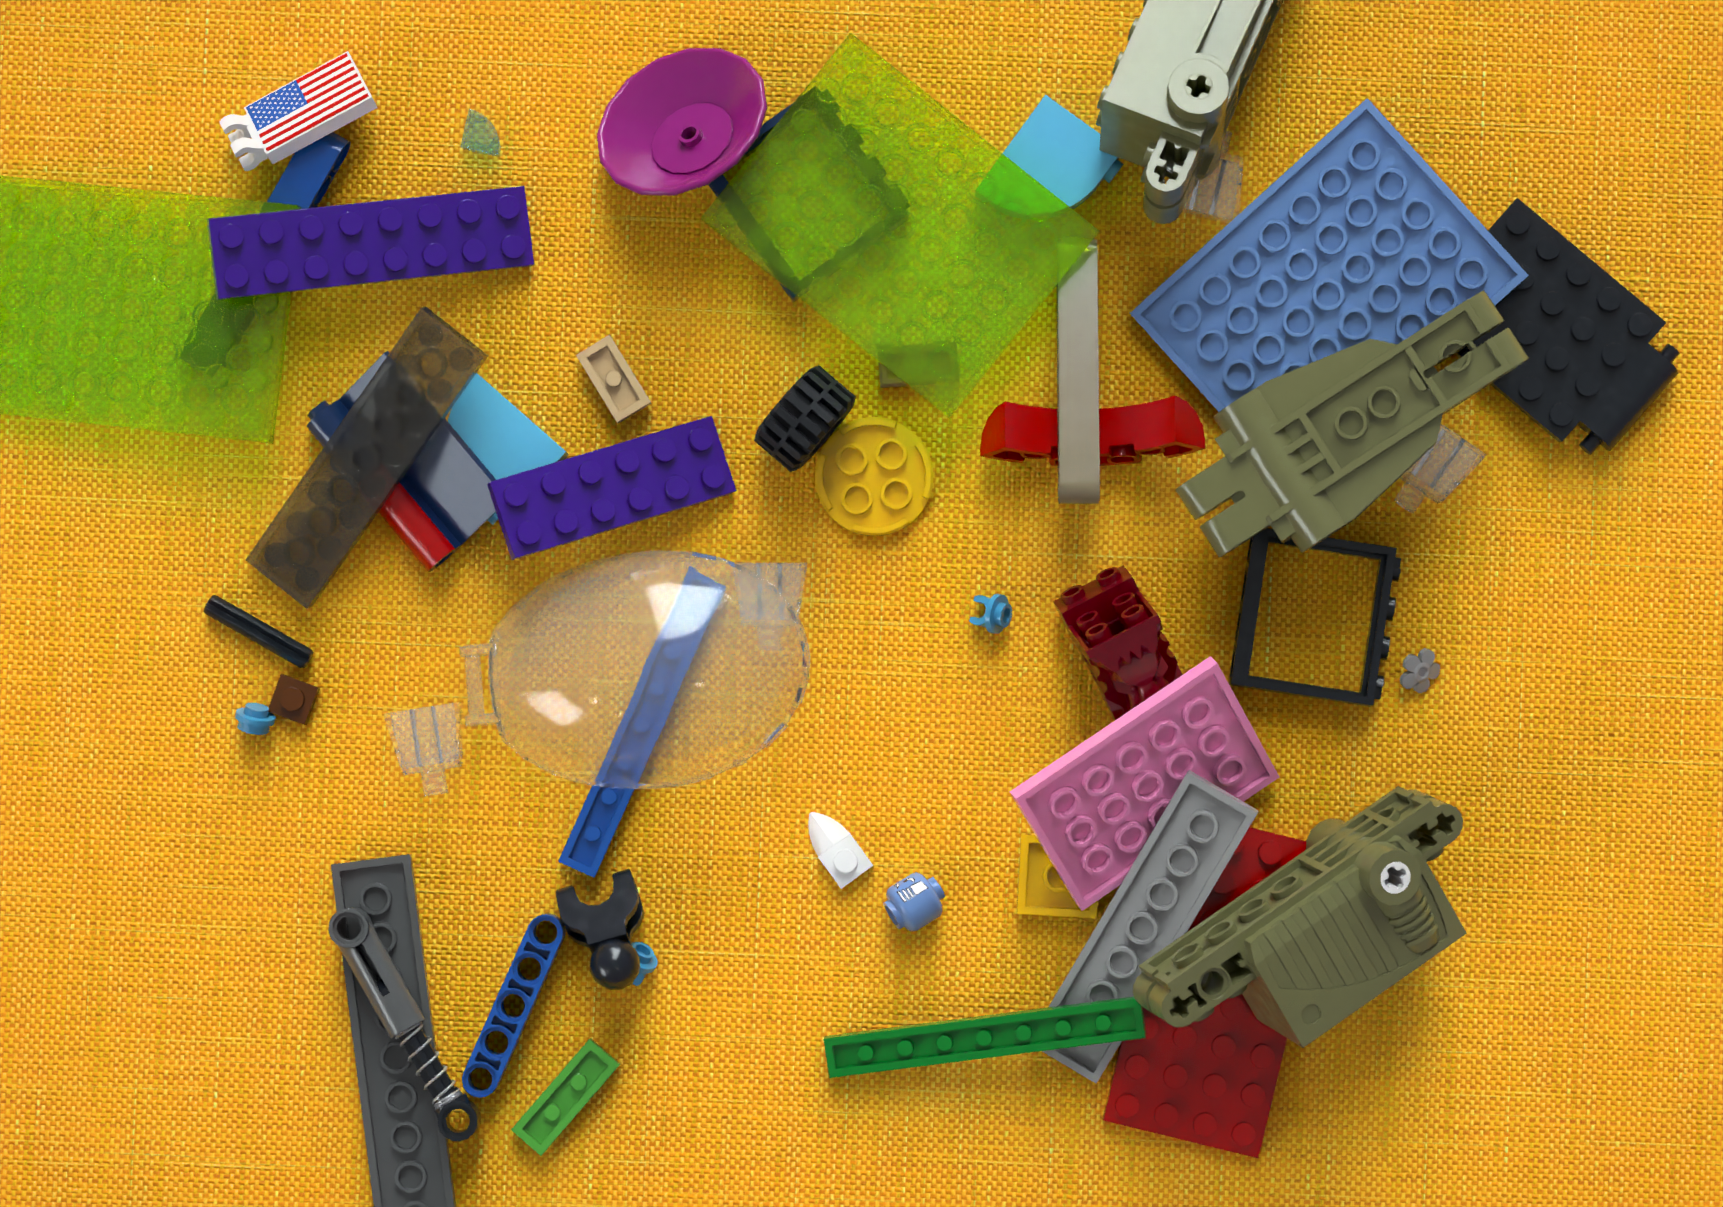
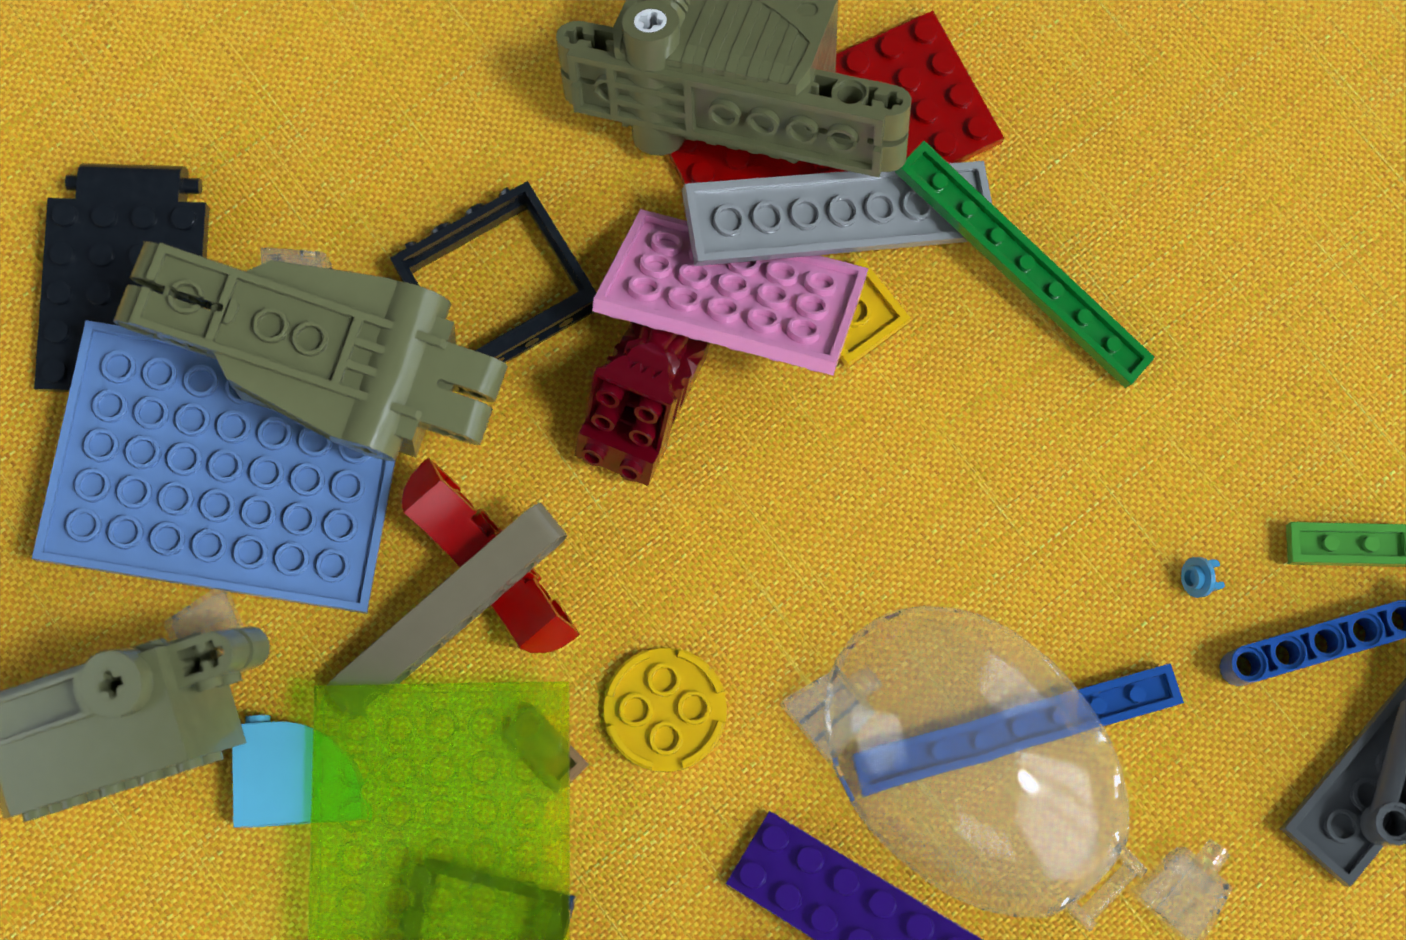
camera: 135 degrees left, 10 degrees down
(606, 930) = (1204, 616): black piece -> none
(804, 418) = (666, 799): black tyre -> none
(837, 849) = (979, 495): white plate -> none
(914, 901) = (969, 401): medium blue head -> none
(997, 613) = (694, 520): dark azure plate -> none
(1419, 670) = (472, 176): light grey plant -> none

